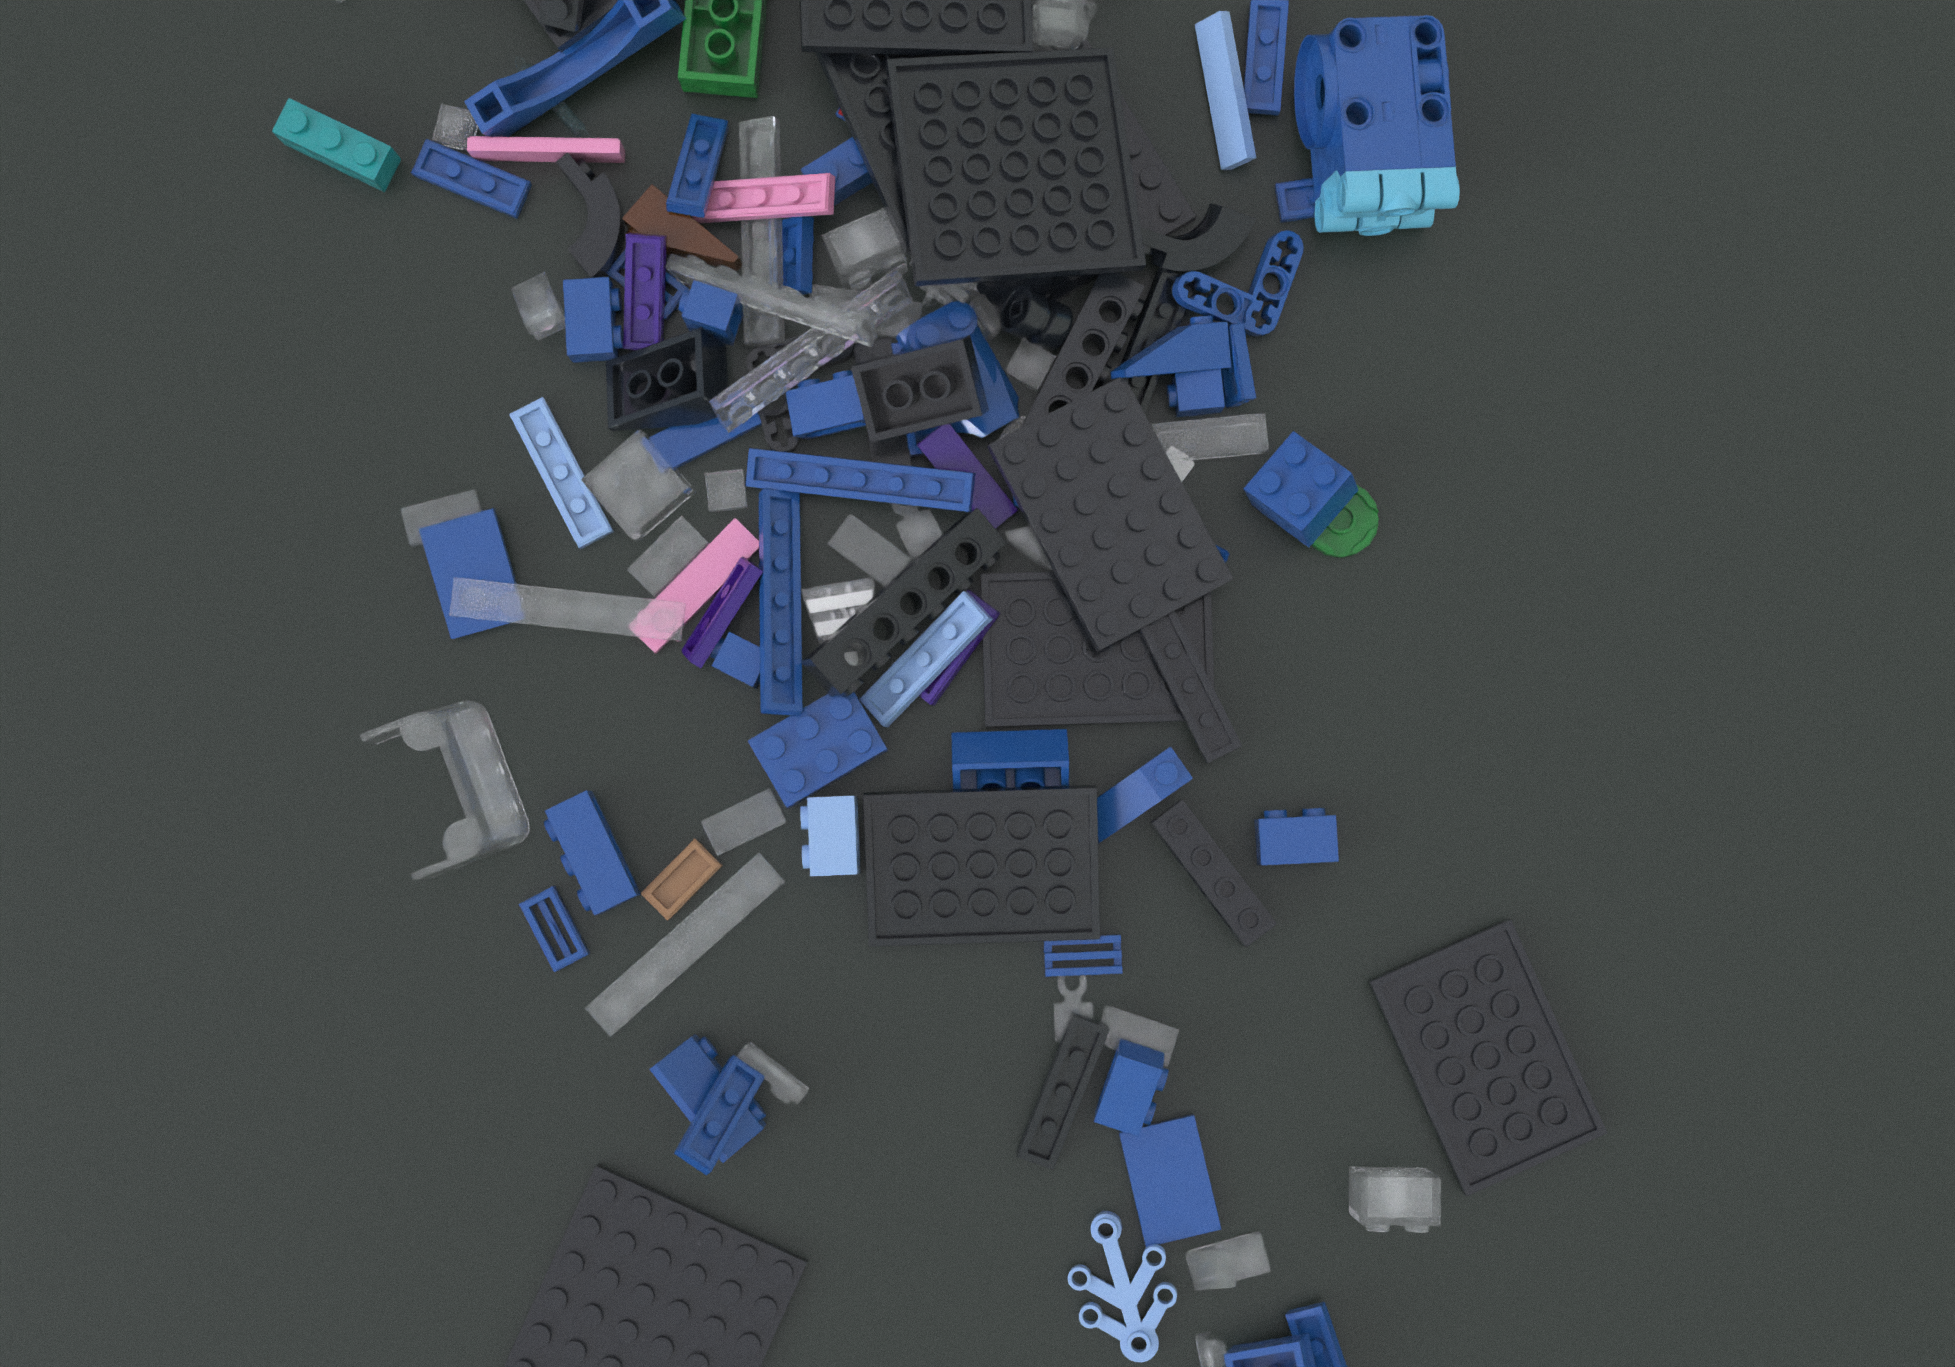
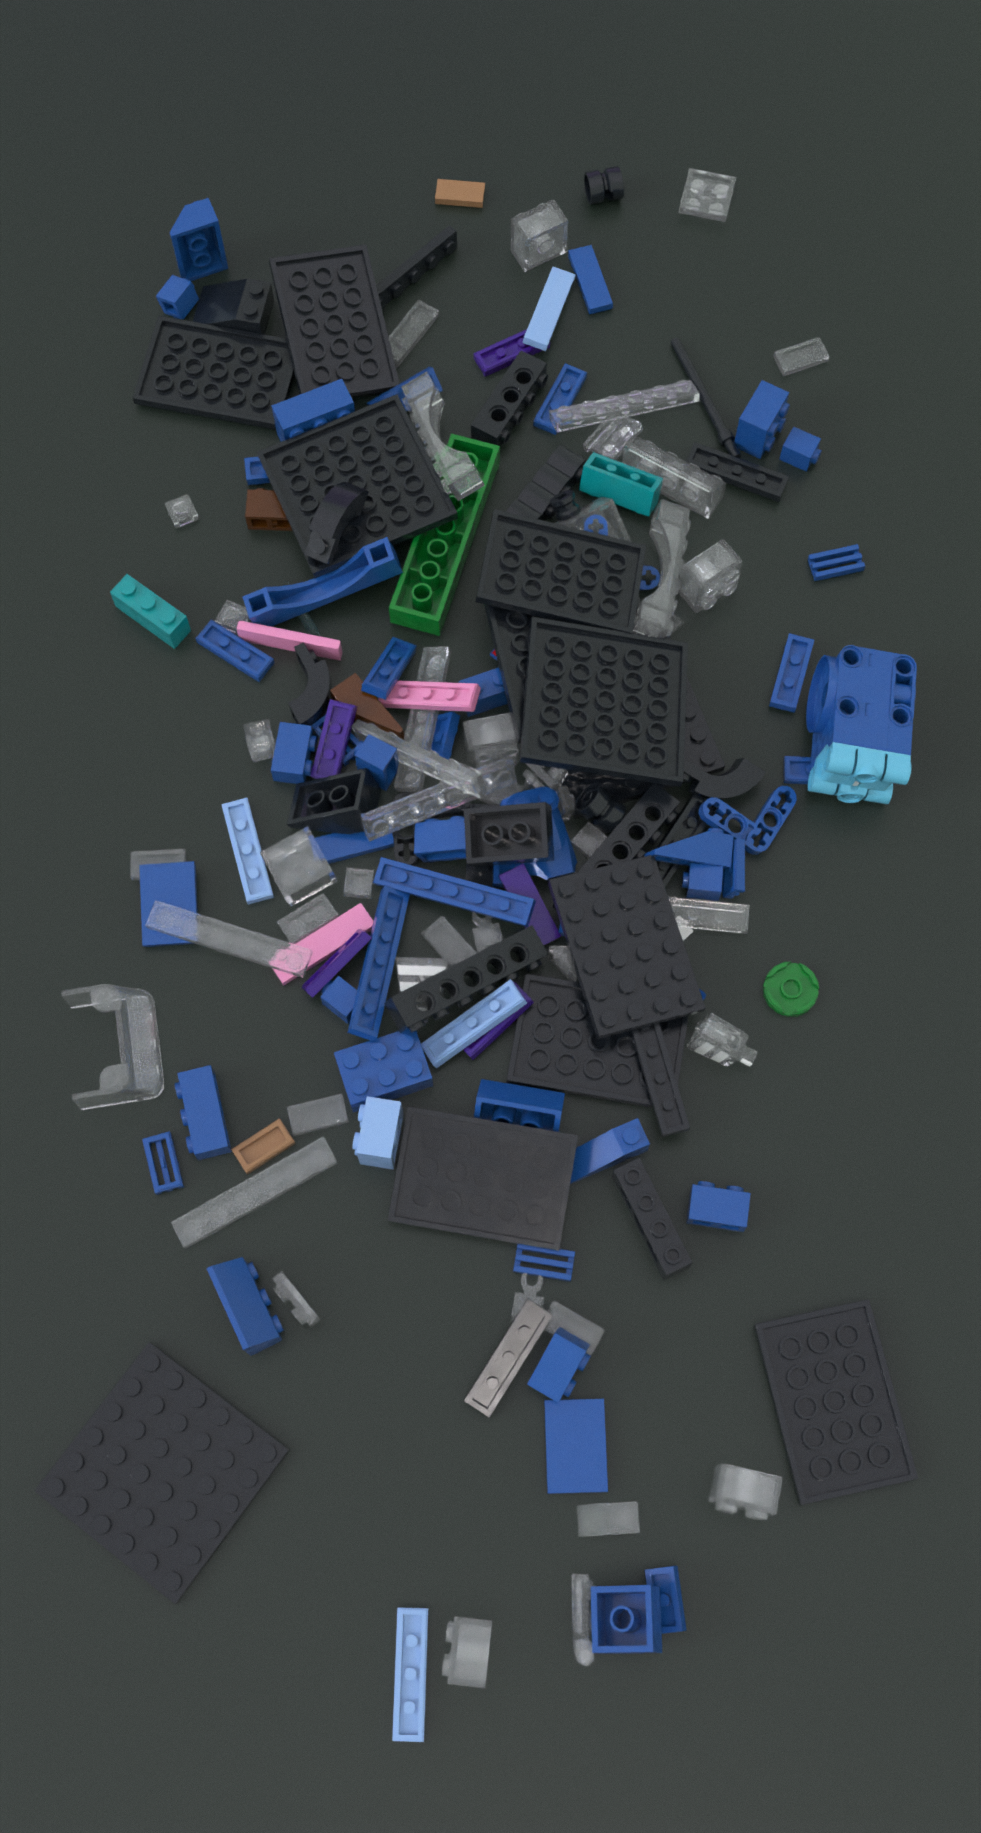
camera: 15 degrees right, 15 degrees down
(719, 1115) = (249, 1314): blue tile -> none
(1124, 1294) = (524, 1527): light blue plant -> none
(1225, 90) = (760, 689): light blue tile -> none
(1249, 615) = (721, 1042): none -> clear torso
(1301, 489) = (765, 958): blue brick -> none

